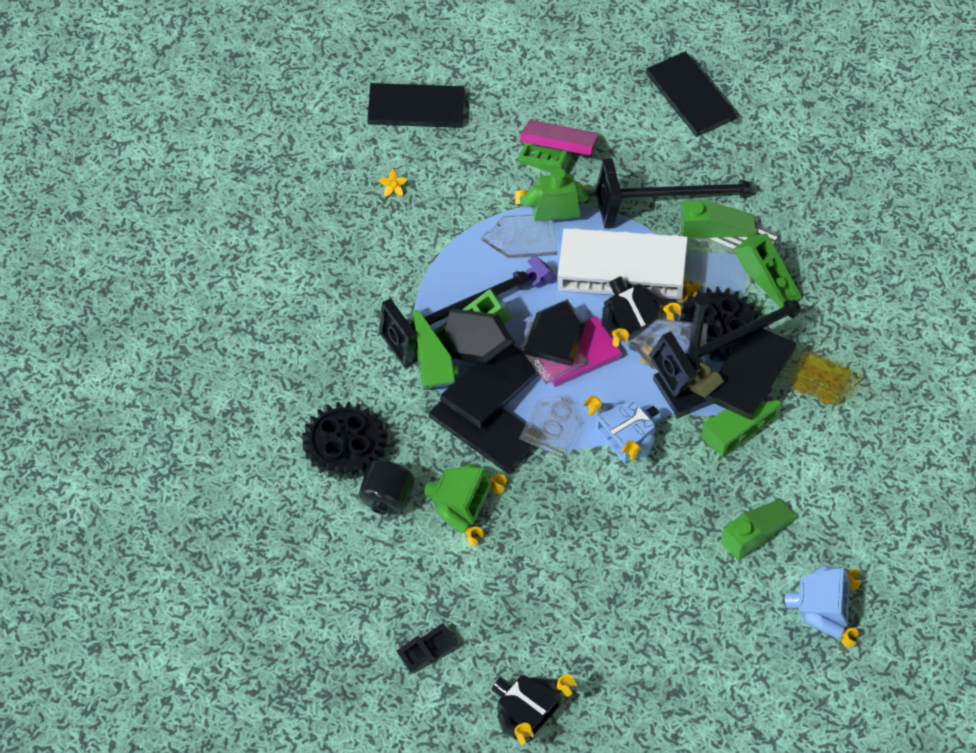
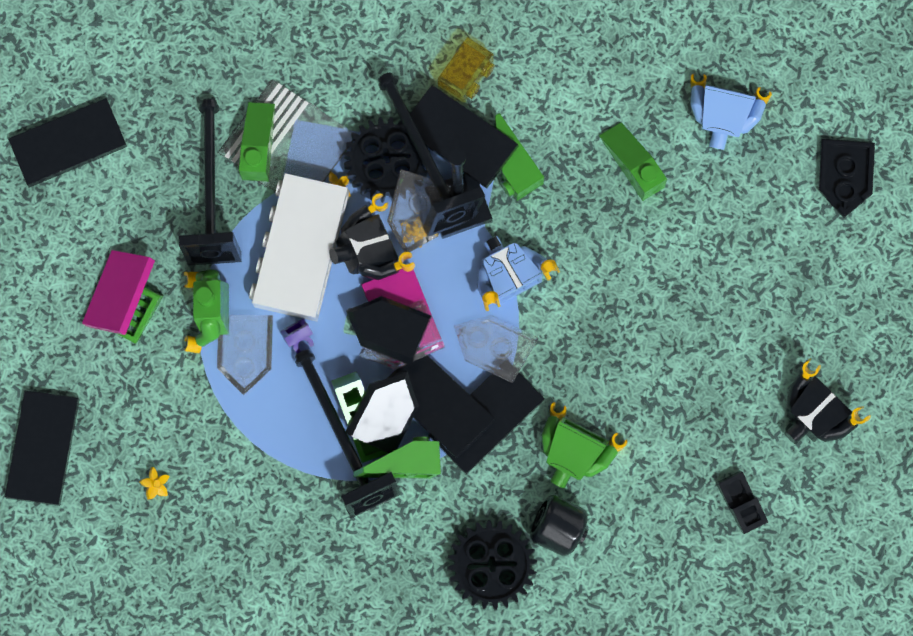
camera: 80 degrees left, 20 degrees up
(705, 381) = (474, 179): olive tile -> none
(766, 268) = (326, 99): bright green slope -> none
(783, 722) = (846, 173): none -> black tile

